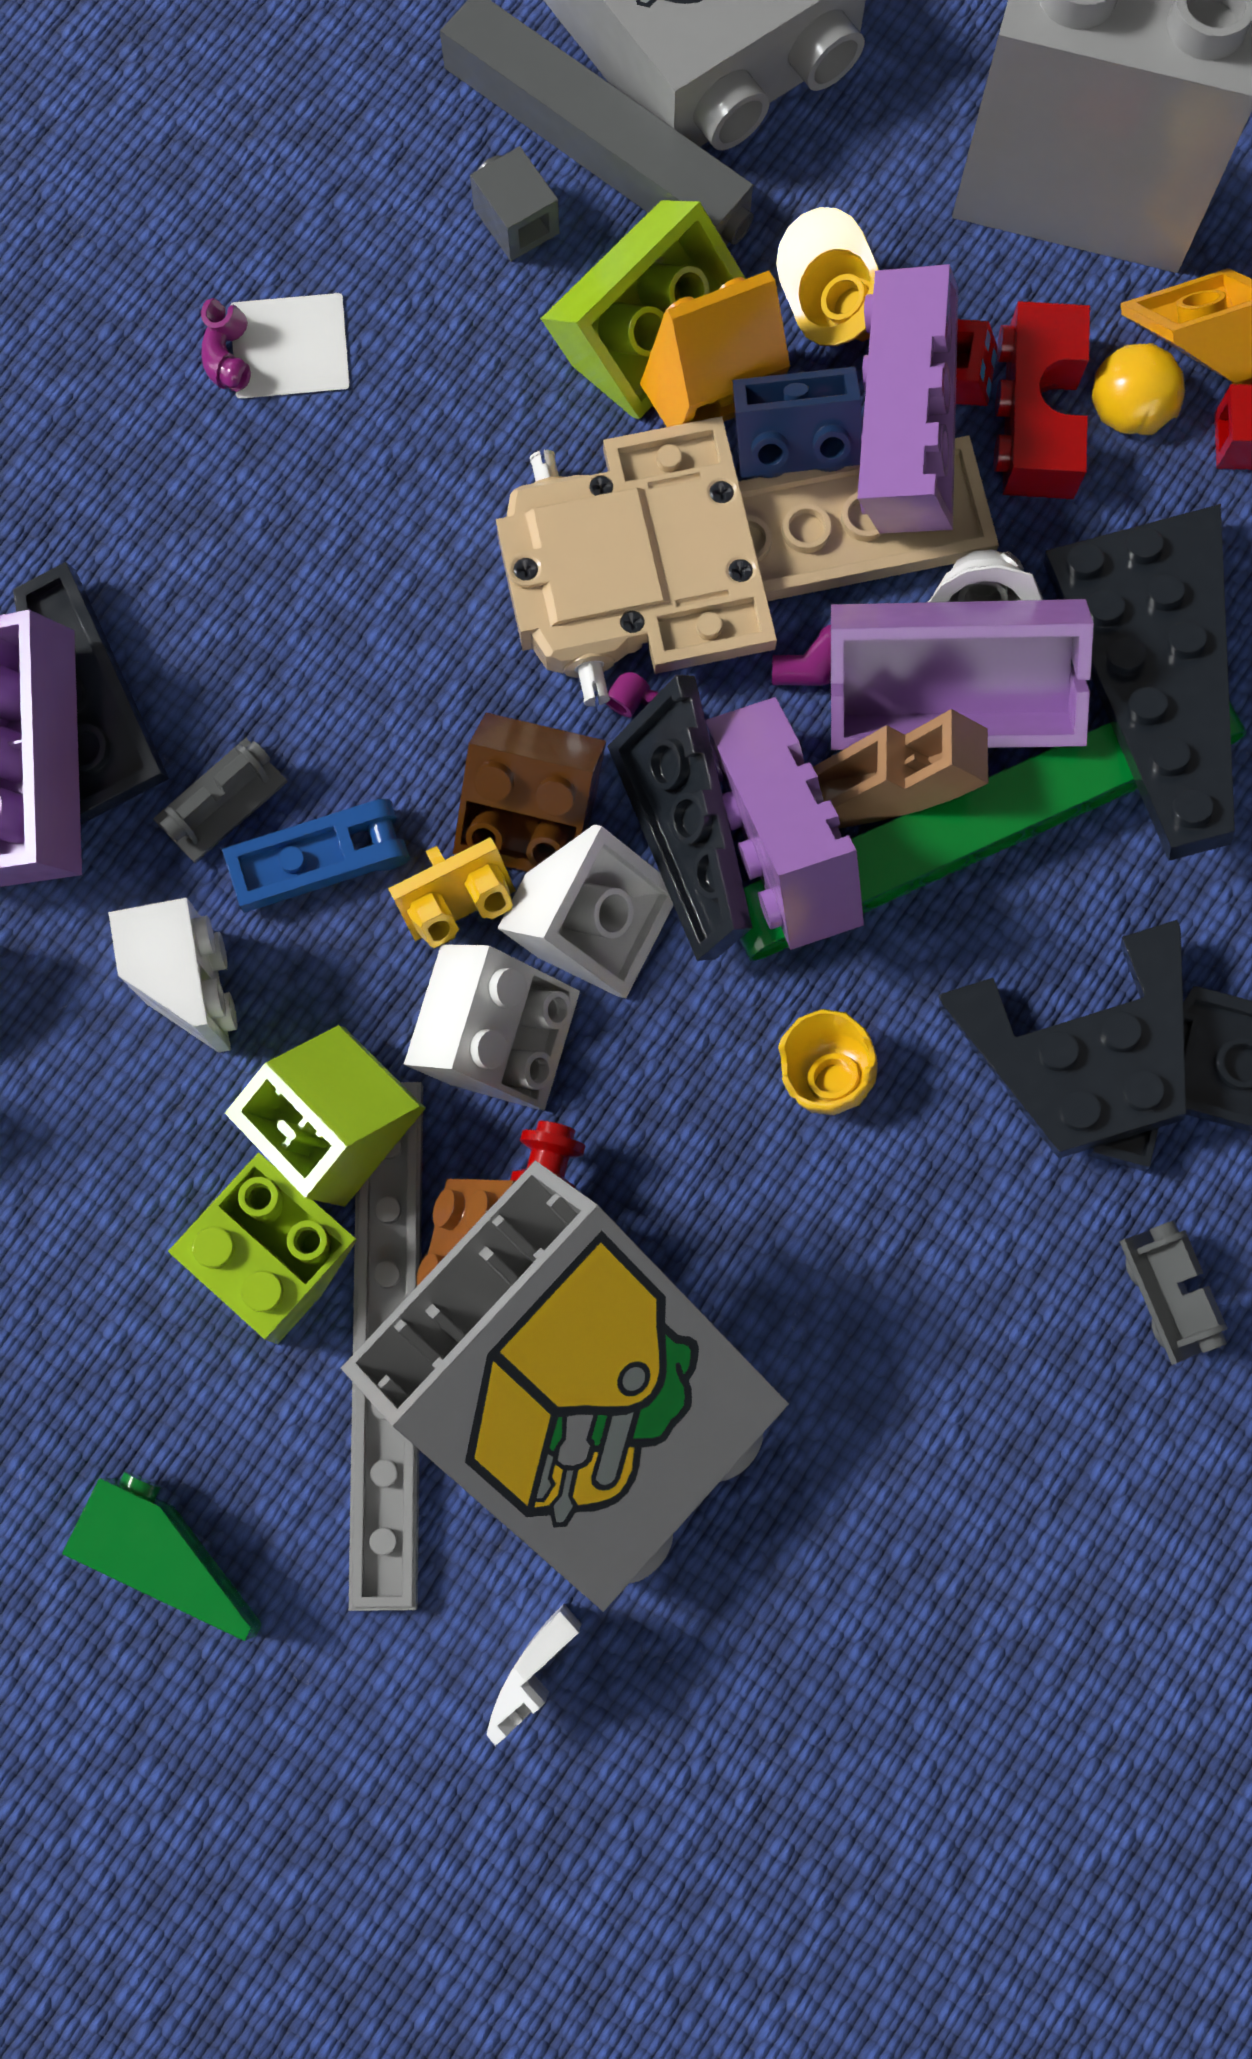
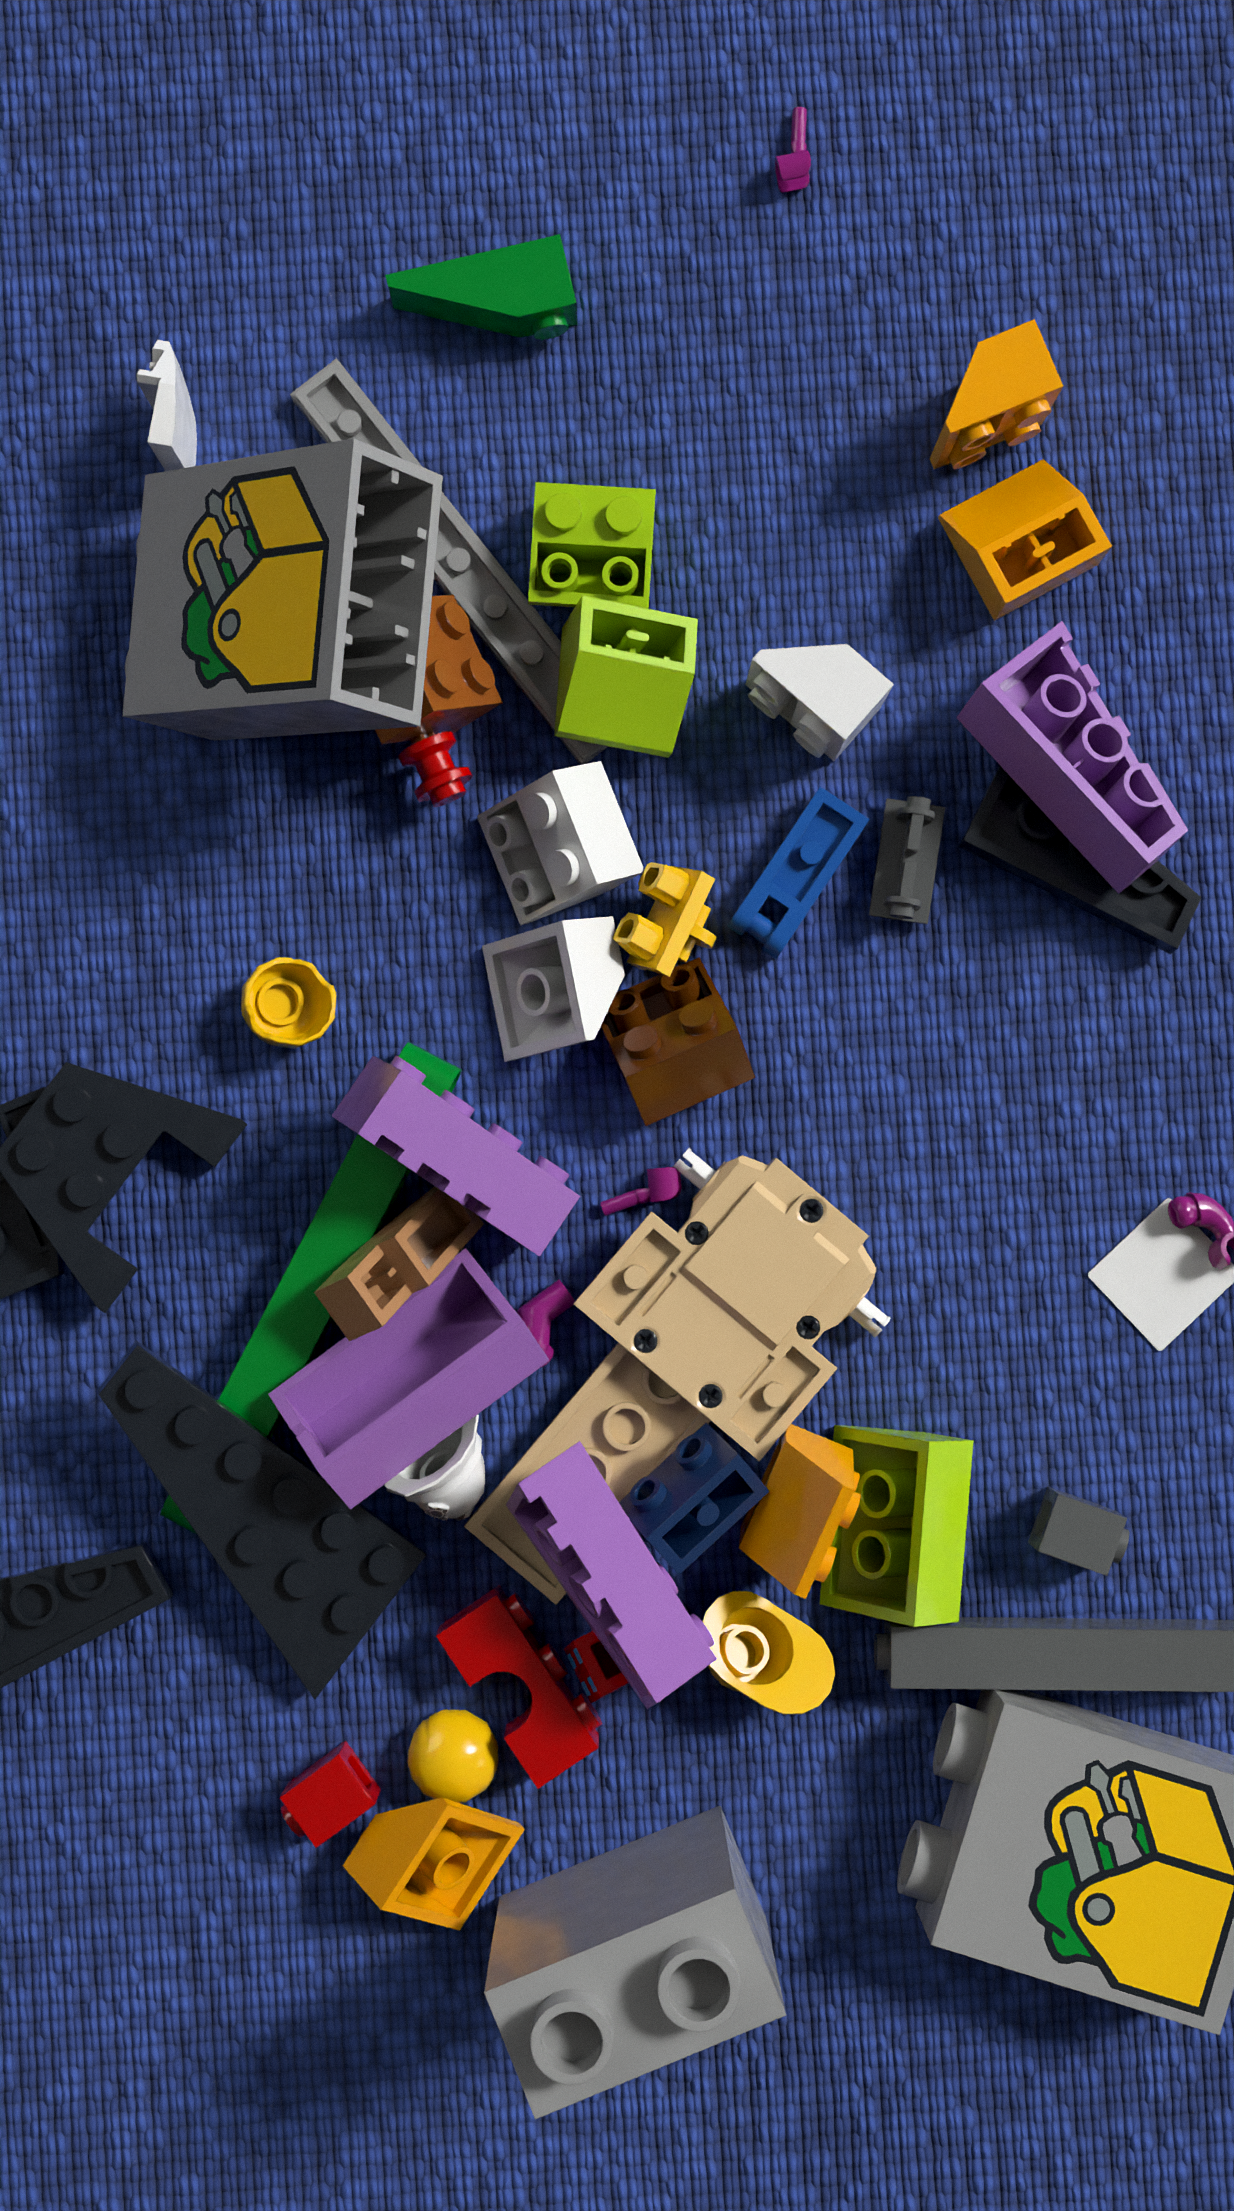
camera: 140 degrees right, 10 degrees up
(681, 810) = (547, 1114): black wing -> none

